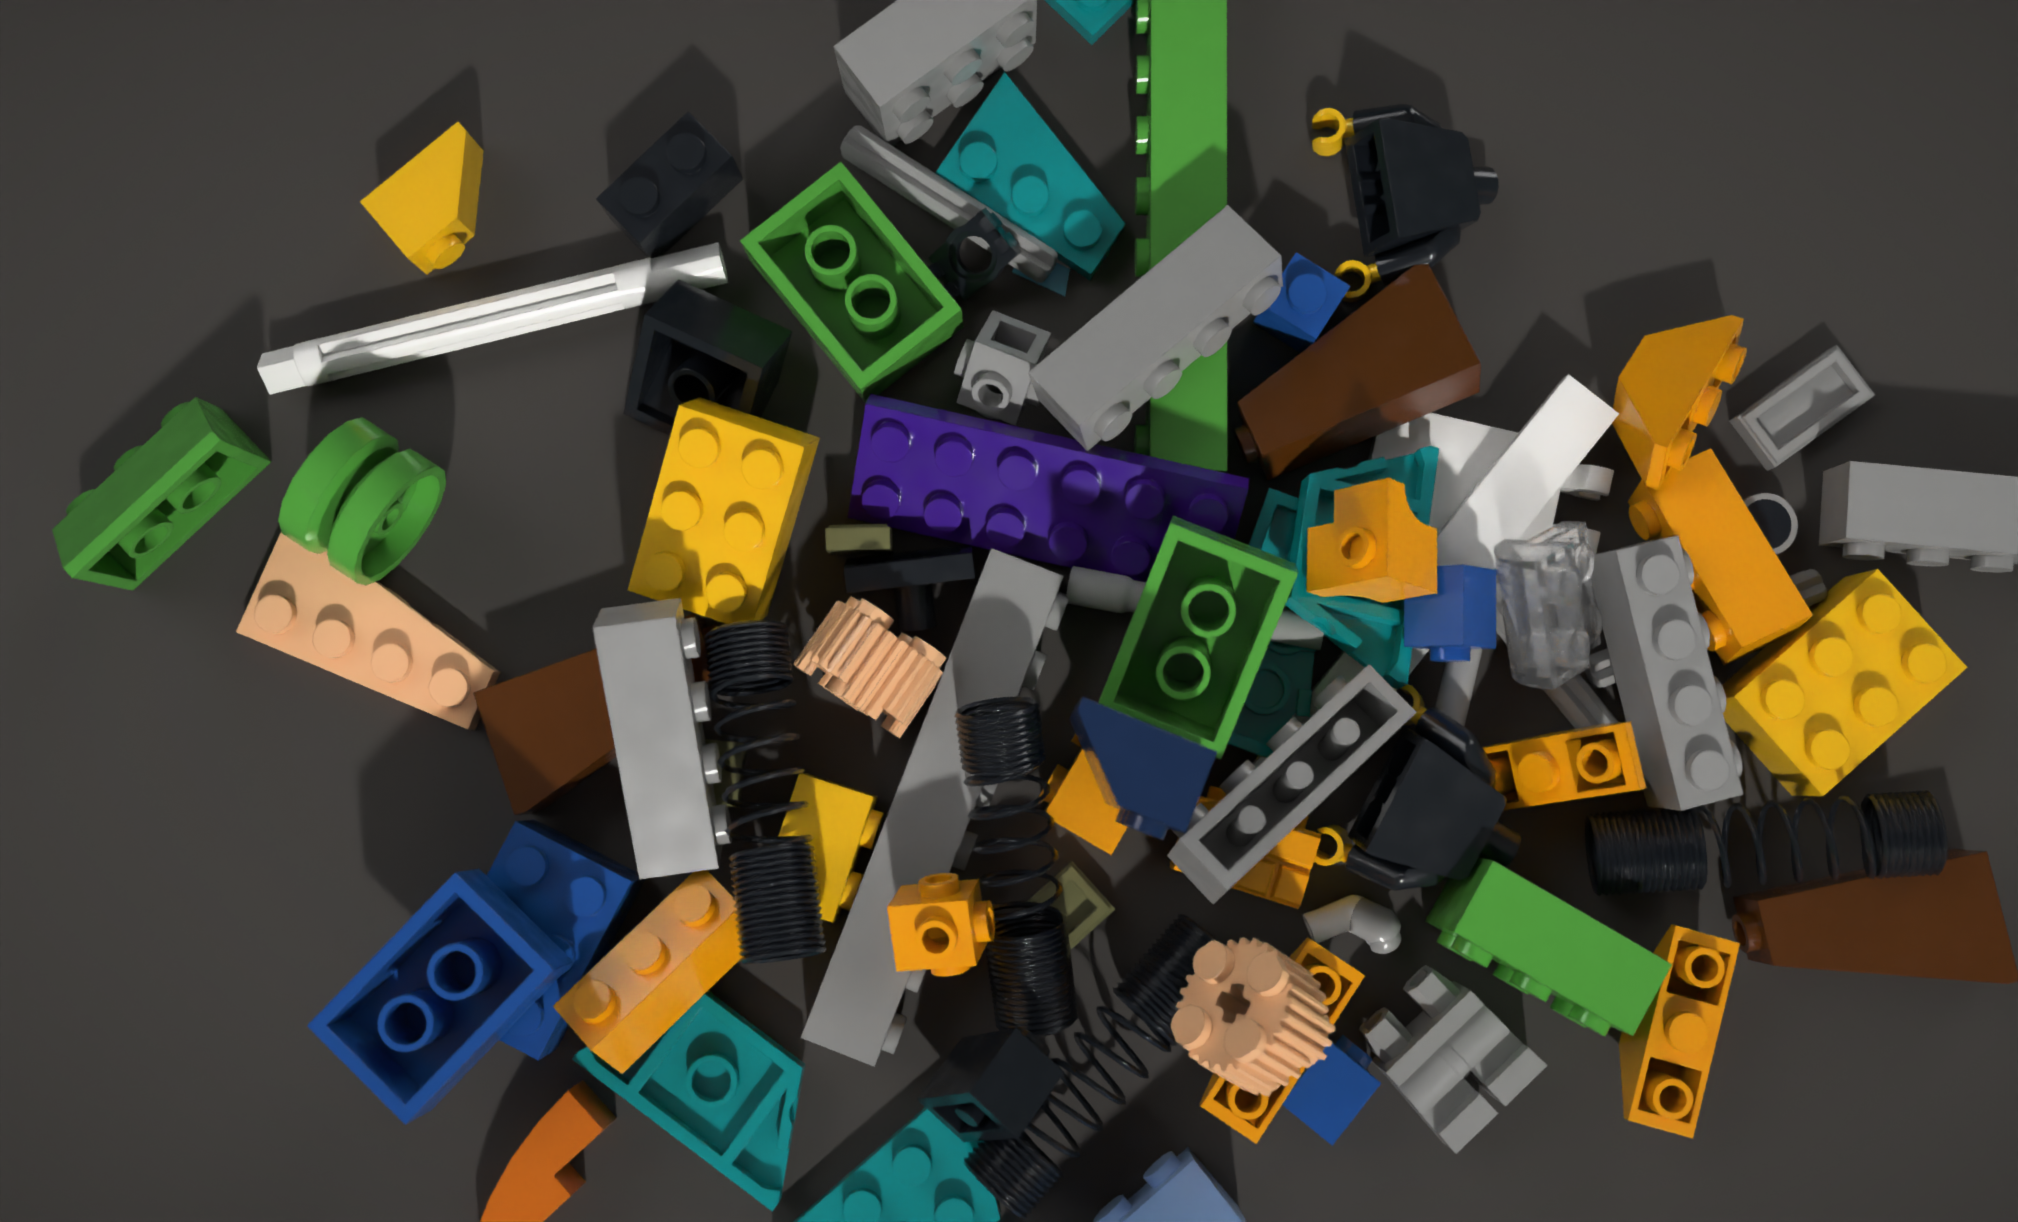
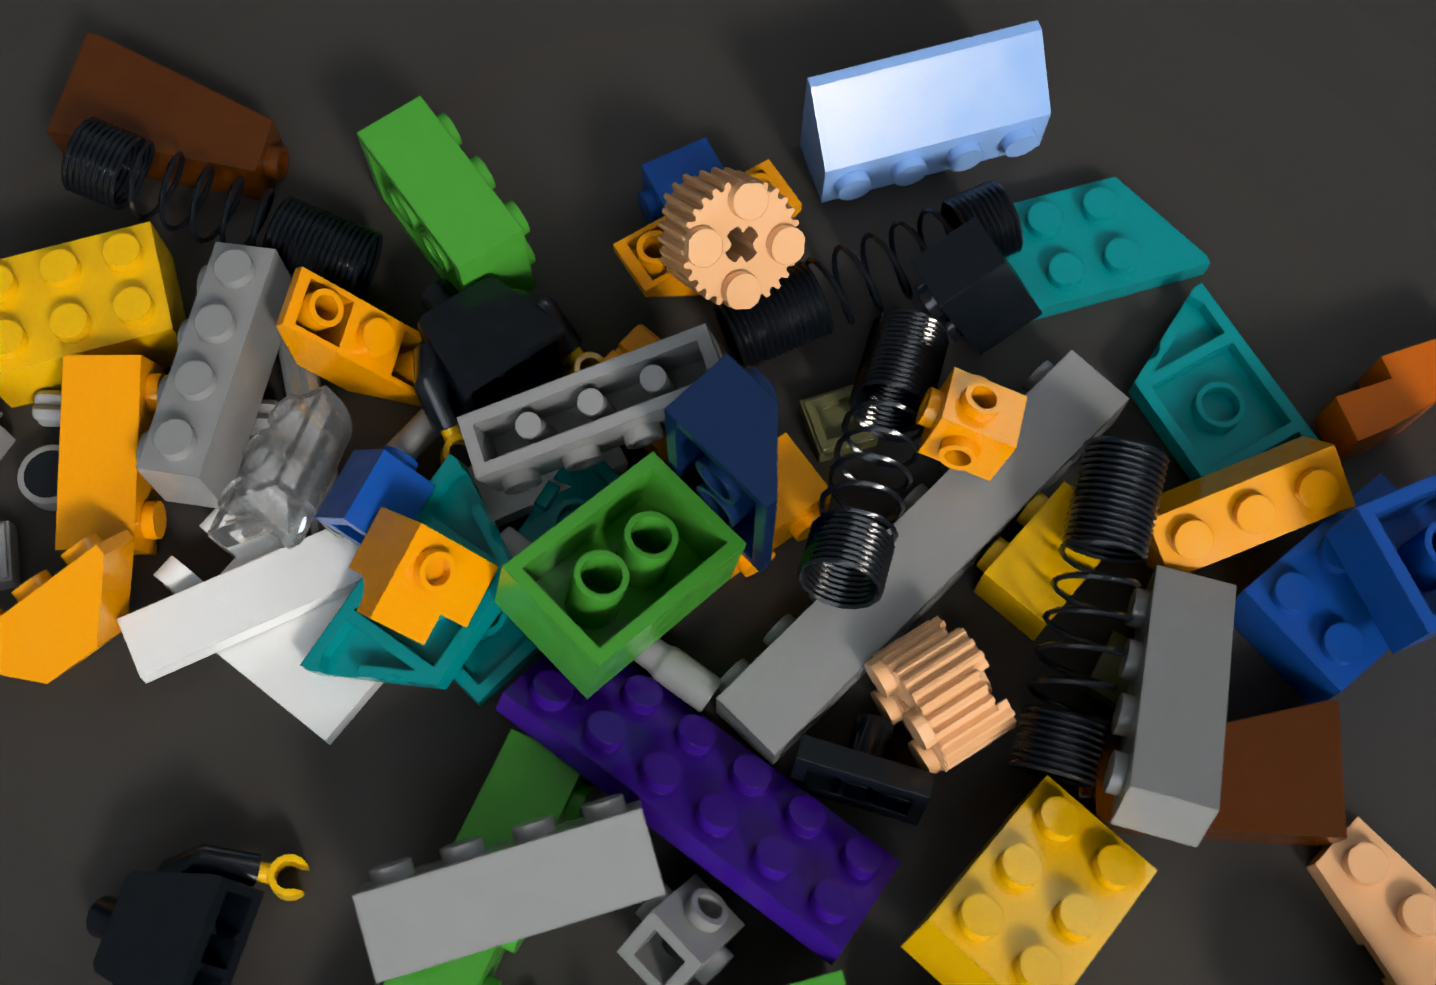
camera: 160 degrees left, 15 degrees down
(859, 539) = (899, 829): olive tile -> none
(1303, 304) = (341, 865): blue brick -> none
(1358, 916) = (590, 307): arm -> none
(1361, 378) = (323, 767): reddish brown slope -> none
(1444, 1046) = (572, 183): light grey hips -> none
(1675, 1042) = (407, 70): light orange slope -> none

